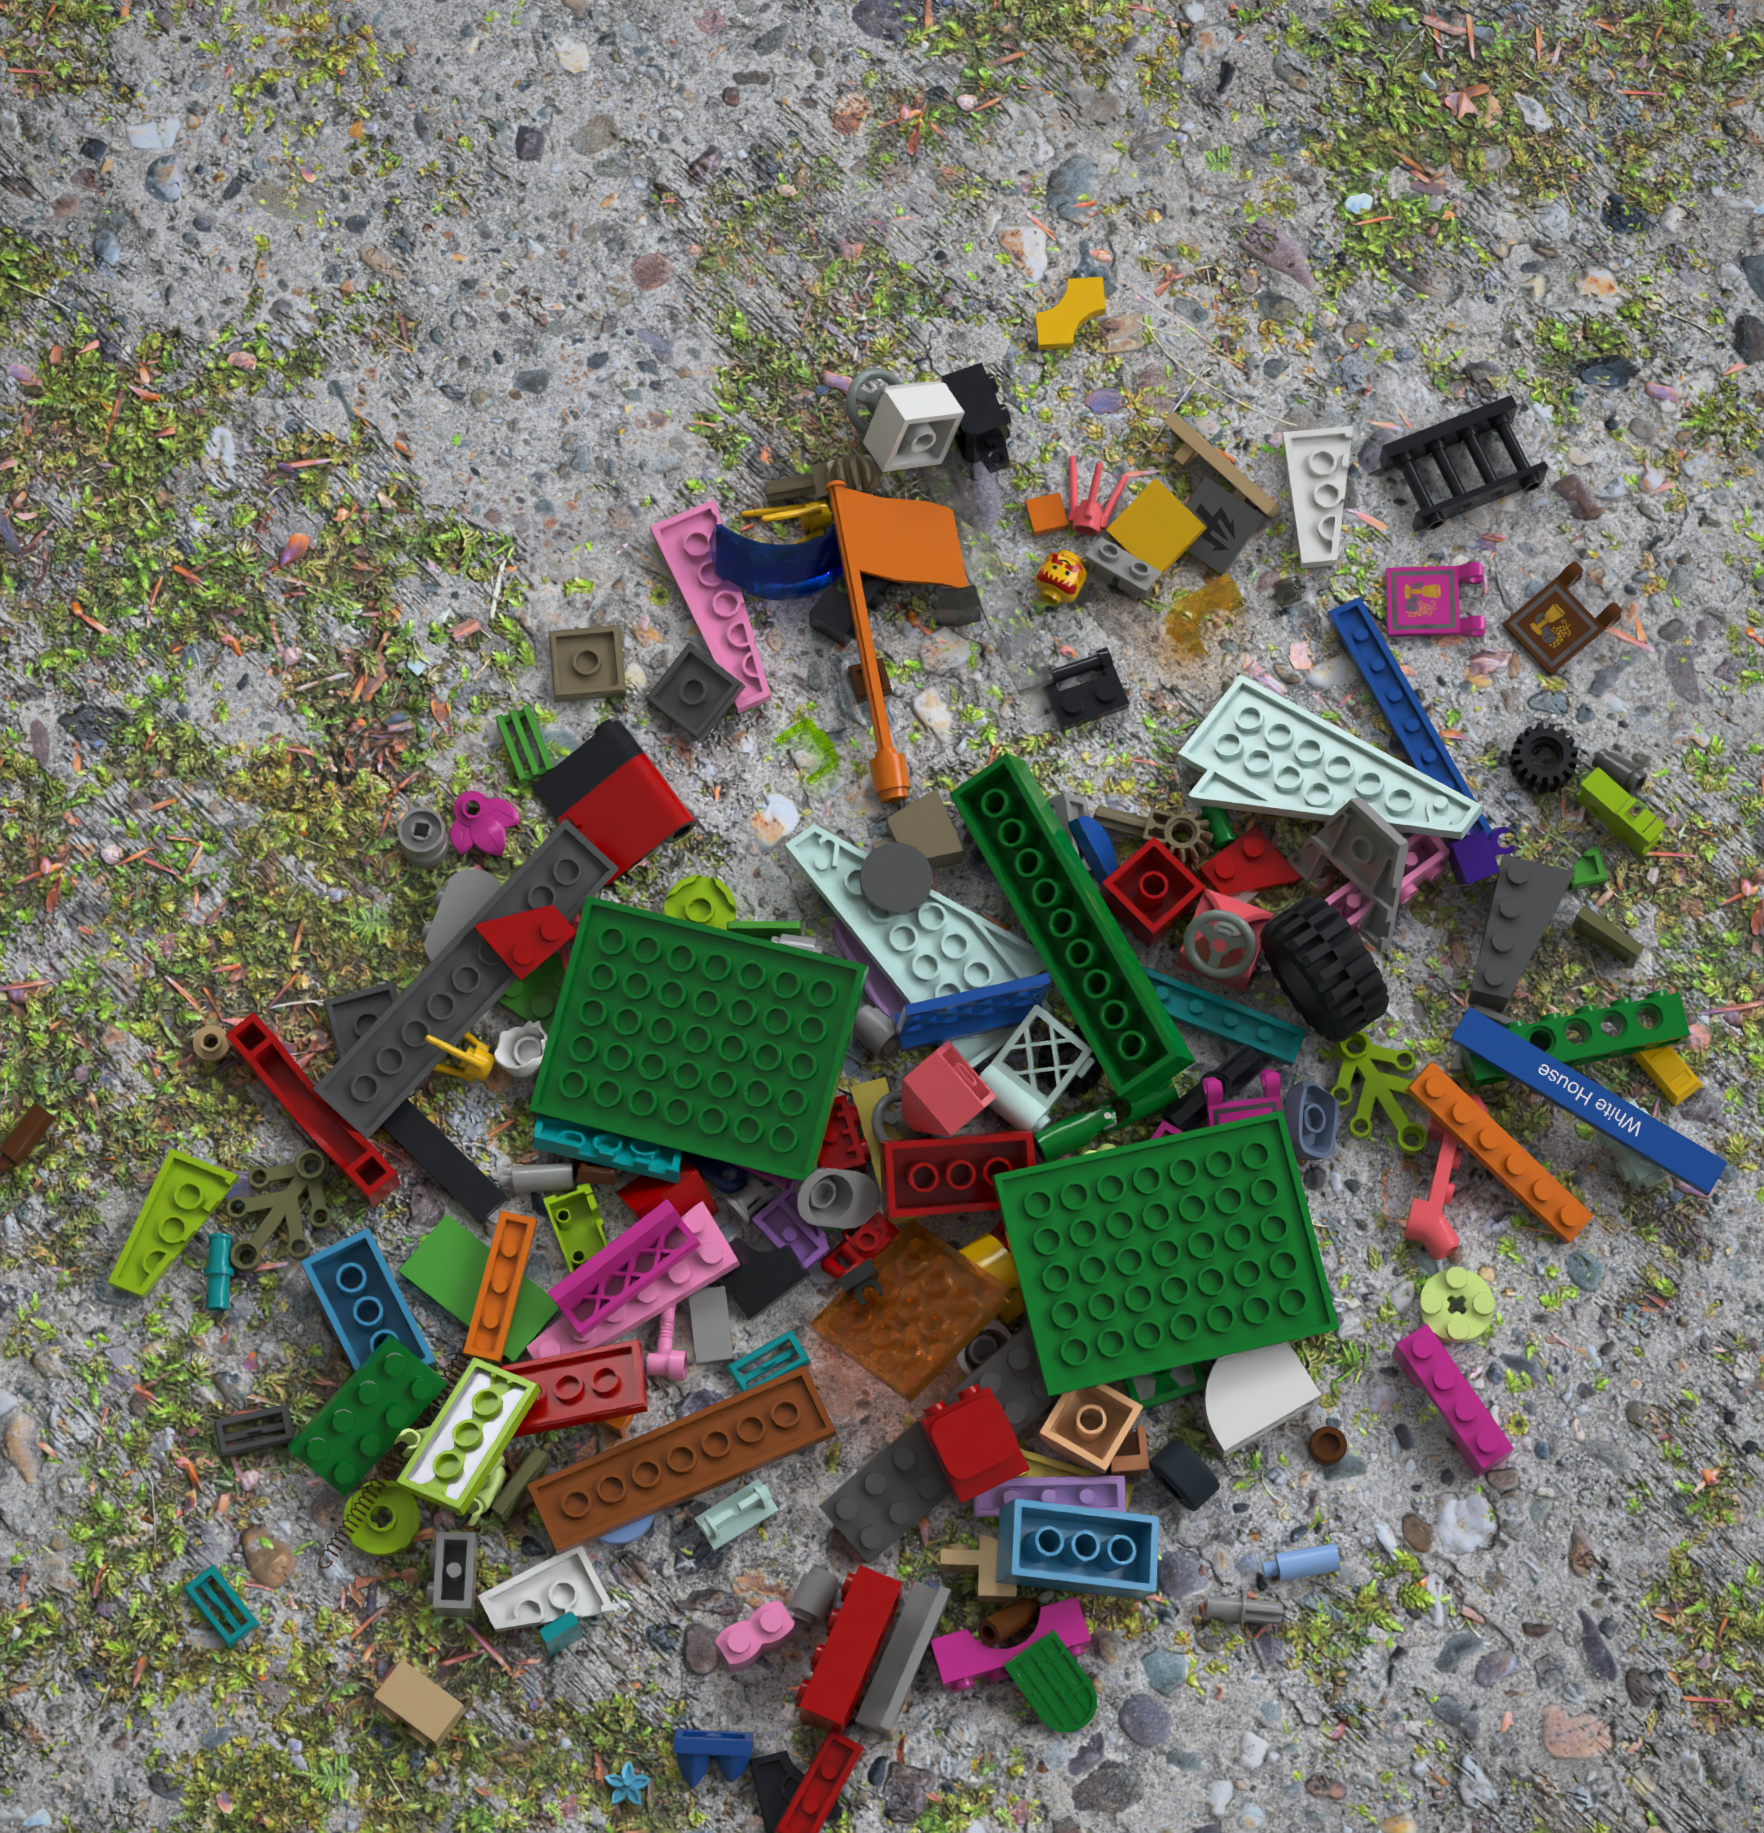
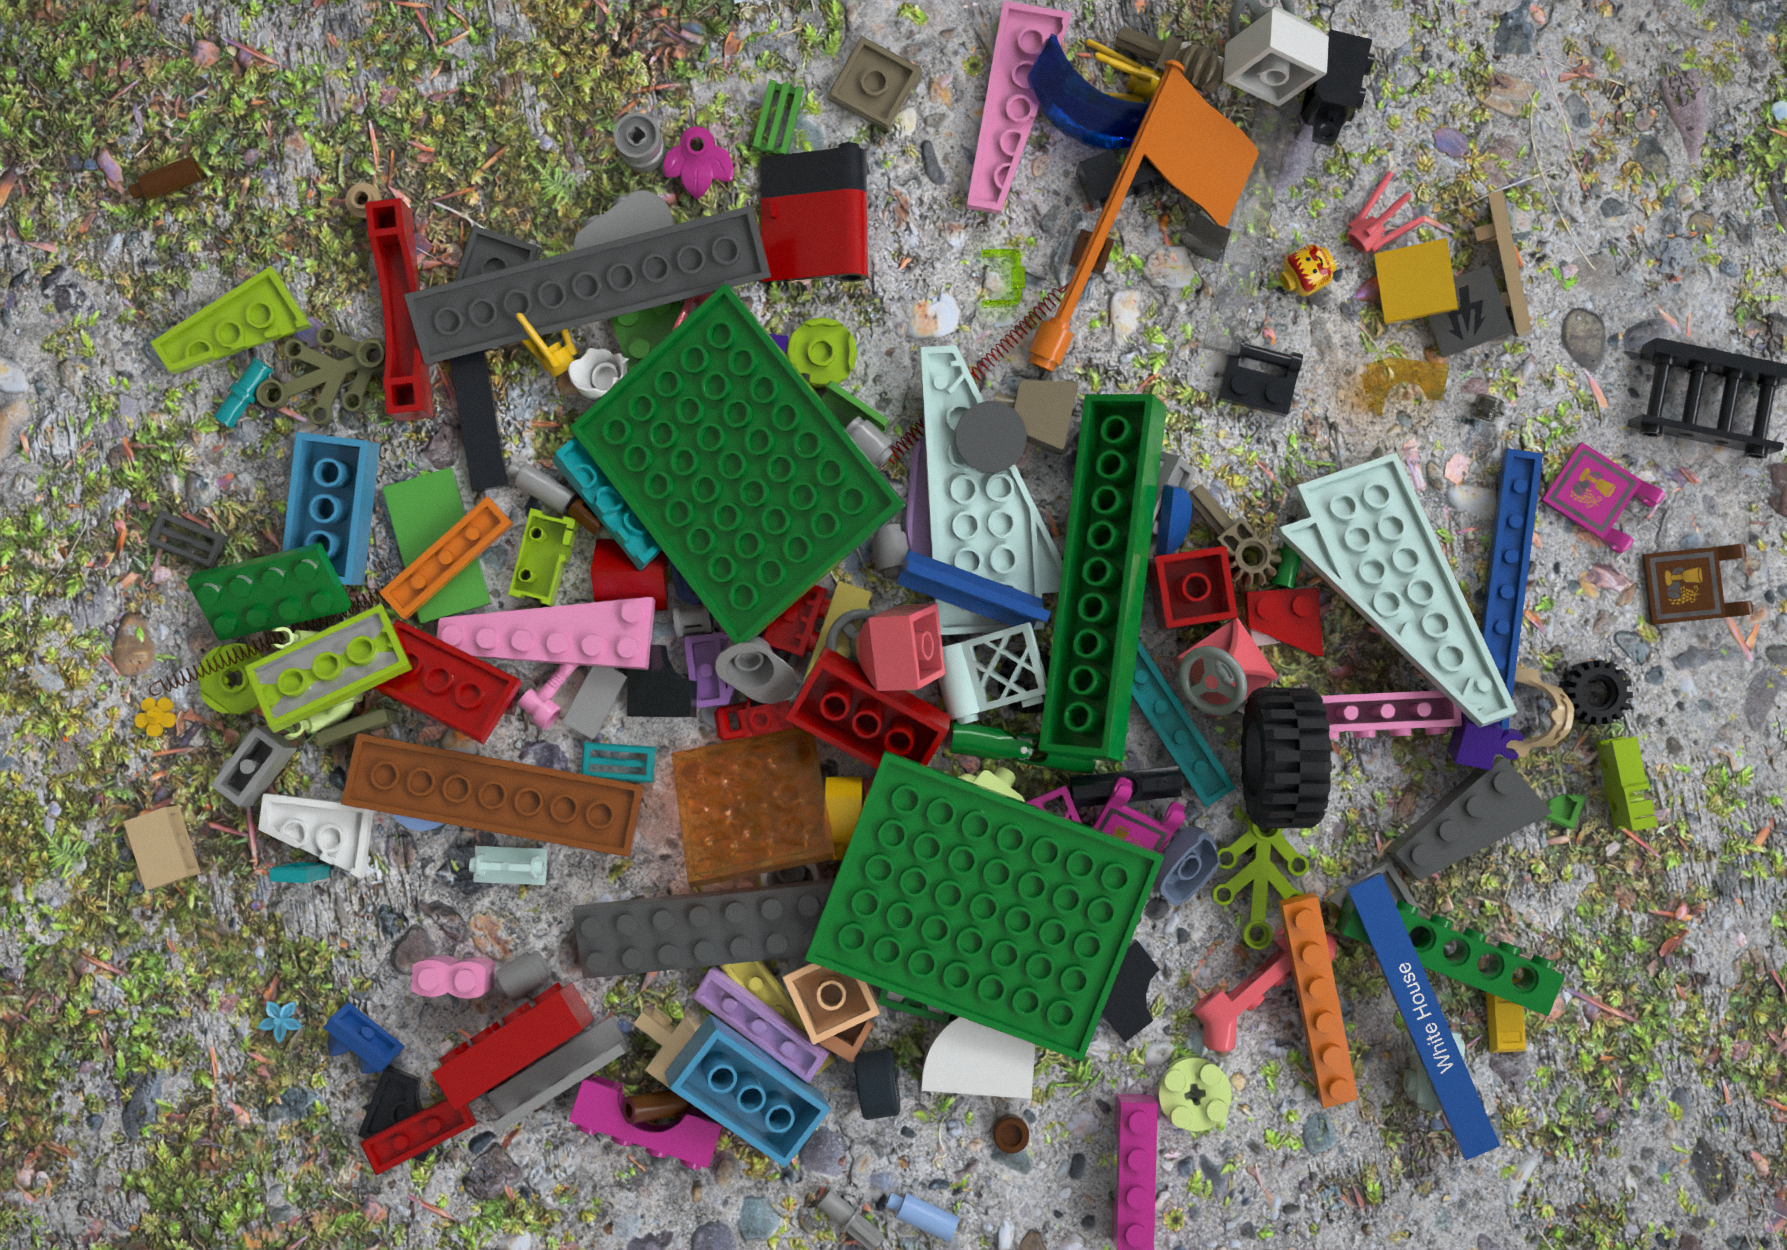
camera: 35 degrees right, 15 degrees up
(240, 1631) = (83, 662): teal tile -> none
(331, 1601) = (156, 716): none -> yellow plant
(526, 937) = (654, 285): red wing -> none
(617, 1257) = (549, 599): dark pink fence -> none
(695, 692) = (942, 167): dark grey tile -> none
(848, 824) = (974, 374): none -> red piece
(859, 1279) = (729, 751): pearl dark grey tile -> none
(972, 1442) = (720, 951): red brick -> none
(1046, 514) = (1334, 208): orange tile -> none
(1054, 1684) = (657, 1178): green window -> none
(1080, 303) = (1463, 50): yellow tile -> none
(1110, 561) = (1359, 284): light grey hinge -> none
(1317, 486) = (1577, 331): white wing -> none
(1344, 1267) = (1127, 1001): none -> black tile
(1369, 855) = (1391, 688): light grey wing -> none
(1525, 792) = (1560, 716): none -> tan helmet
(1608, 936) = (1538, 879): olive tile -> none
(1621, 770) = (1652, 747): dark grey cone -> none

